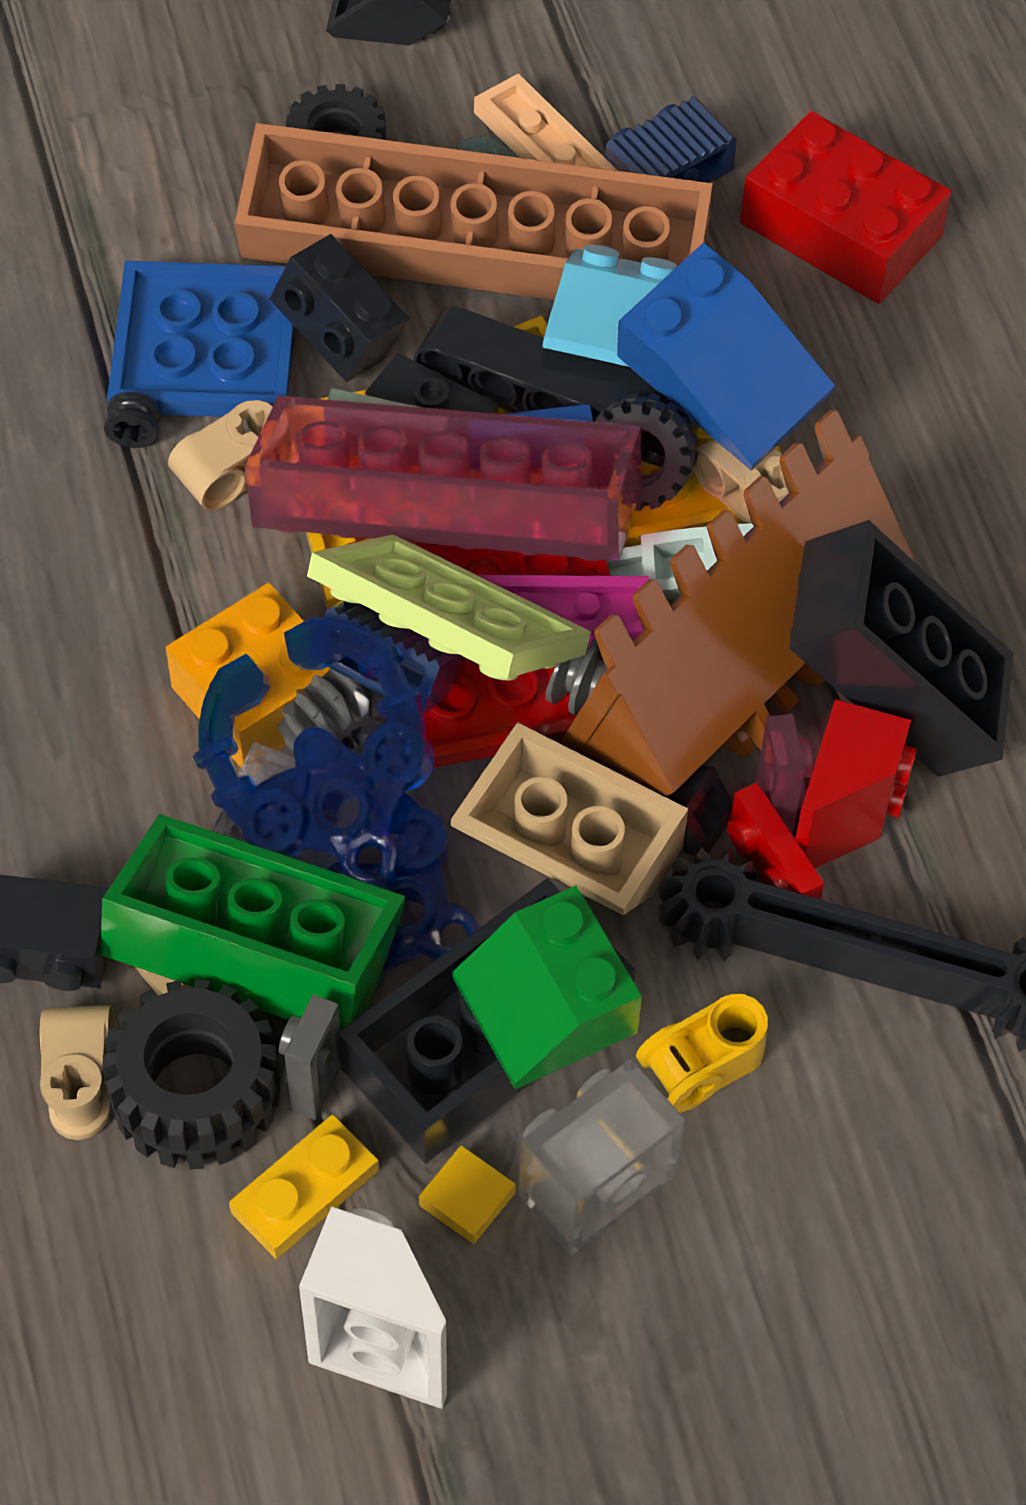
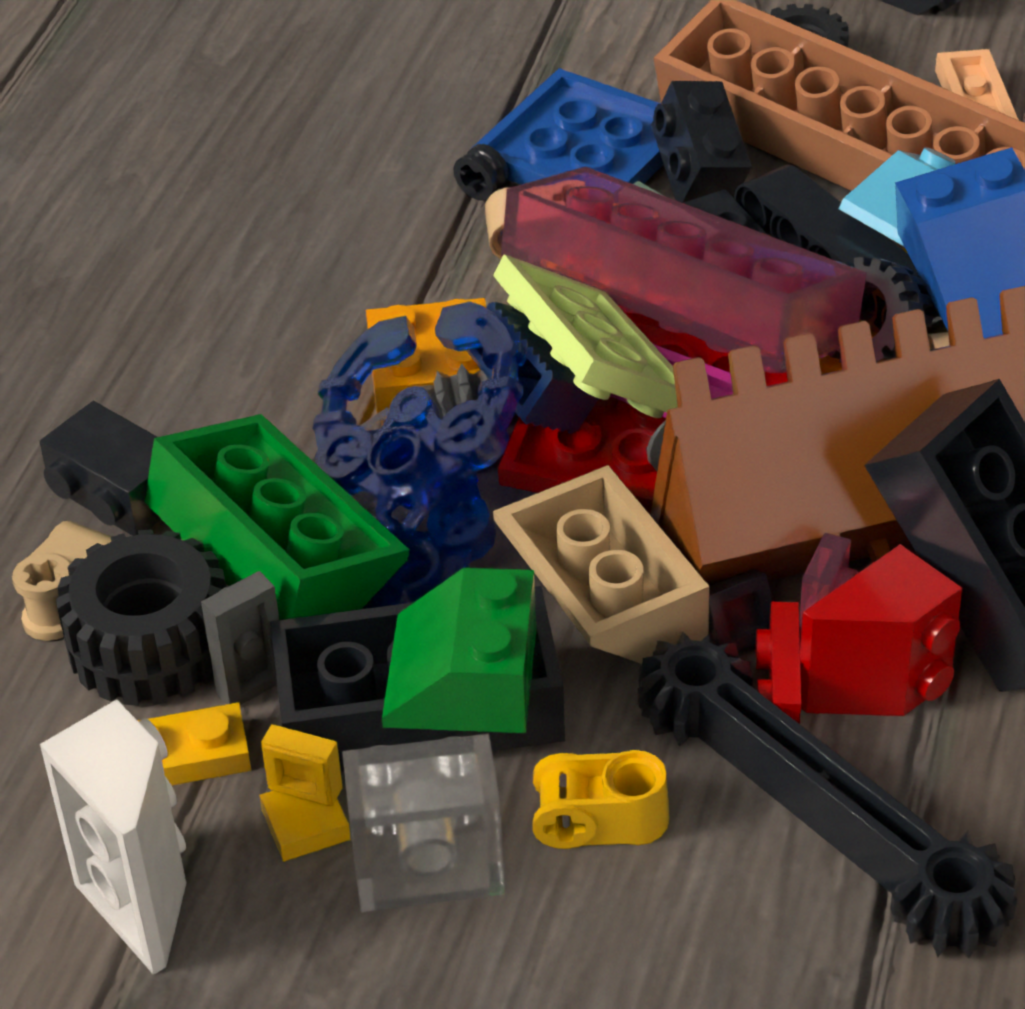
camera: 35 degrees right, 15 degrees down
(453, 1155) = (302, 765): none -> yellow tile

